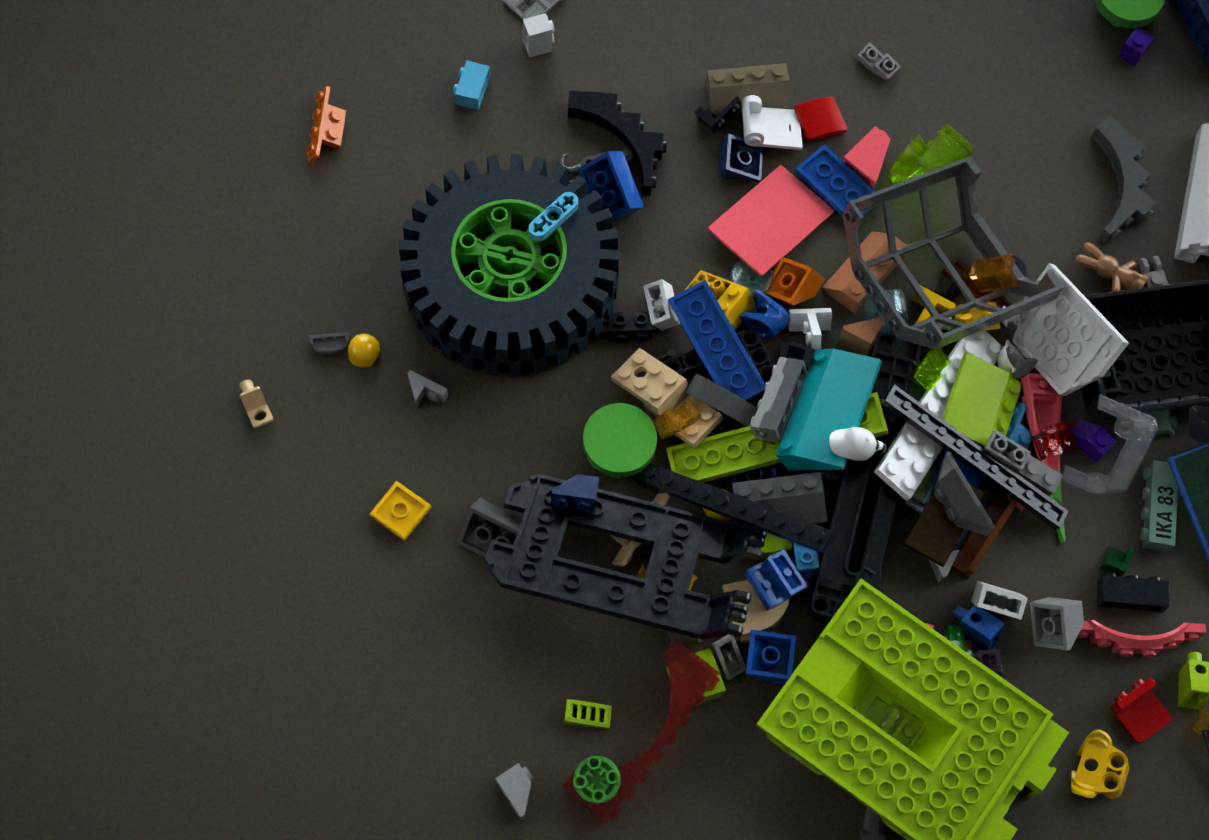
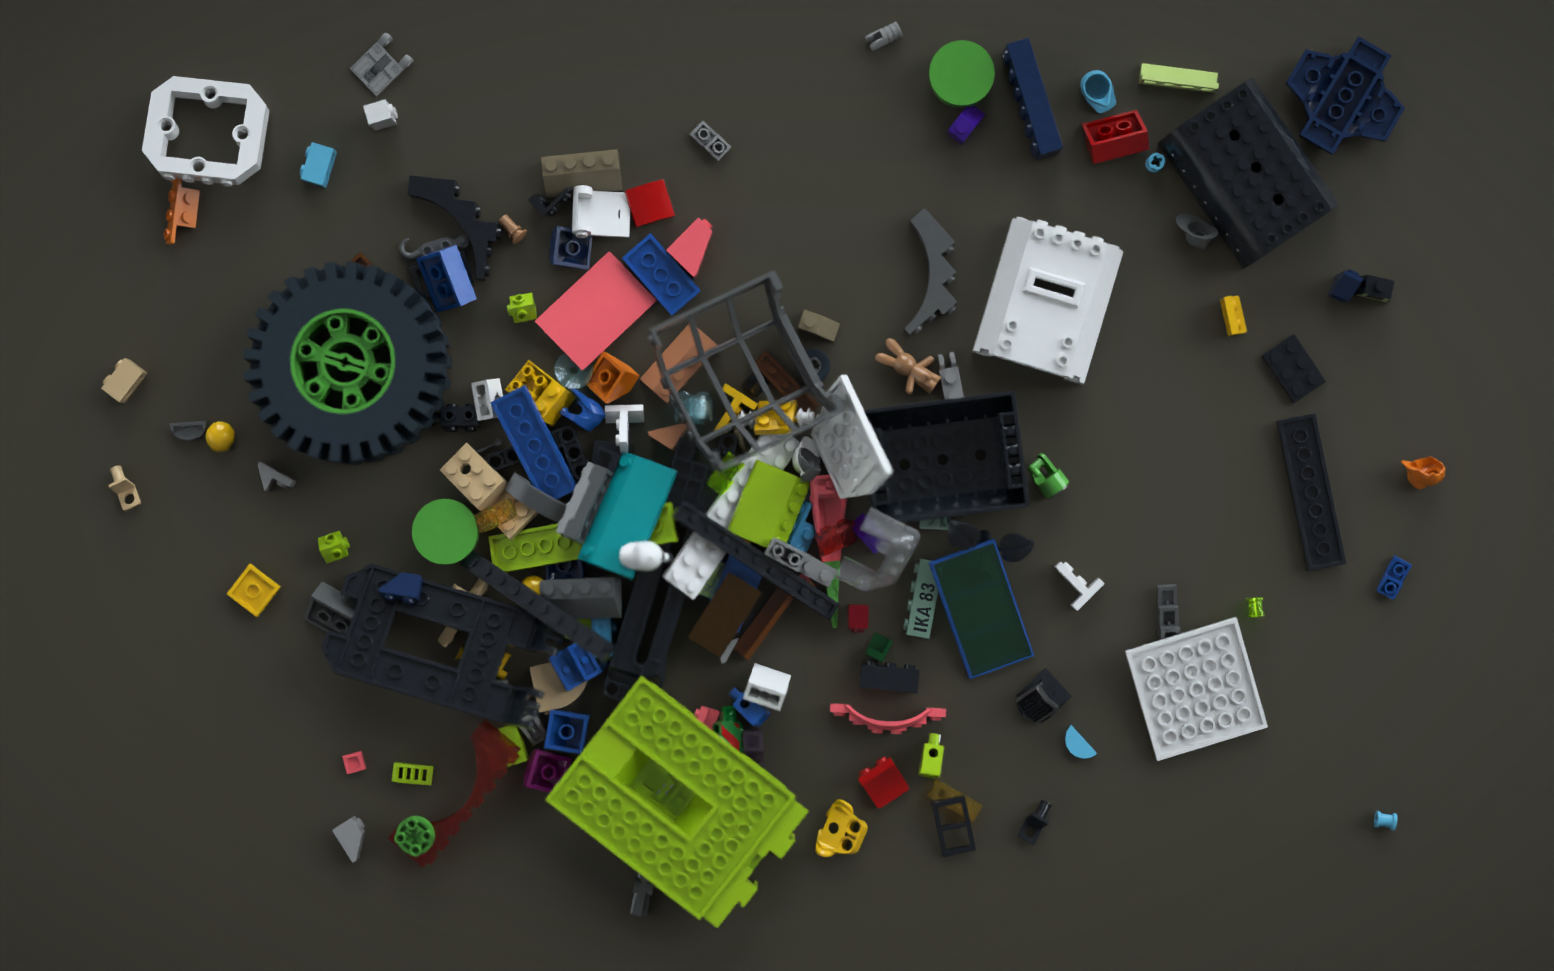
camera: 10 degrees right, 20 degrees up
(259, 293) = (123, 380): none -> tan brick
(310, 50) = (160, 116): none -> white panel
(493, 460) = (333, 546): none -> lime brick
(517, 703) = (354, 762): none -> coral tile
(550, 225) = (389, 315): medium azure beam -> none
(680, 144) = (514, 231): none -> medium nougat pin
(693, 215) = (522, 307): none -> lime brick
(745, 704) = (545, 770): none -> magenta slope
(923, 156) = (742, 259): clear neon green windscreen -> none
(959, 499) = (736, 601): dark grey wedge -> none
(993, 273) = (793, 375): clear orange panel -> none
(1010, 230) = (818, 325): none -> dark tan slope
(1056, 622) = (816, 705): light grey slope -> none
(1091, 523) = (857, 617): none -> dark red brick

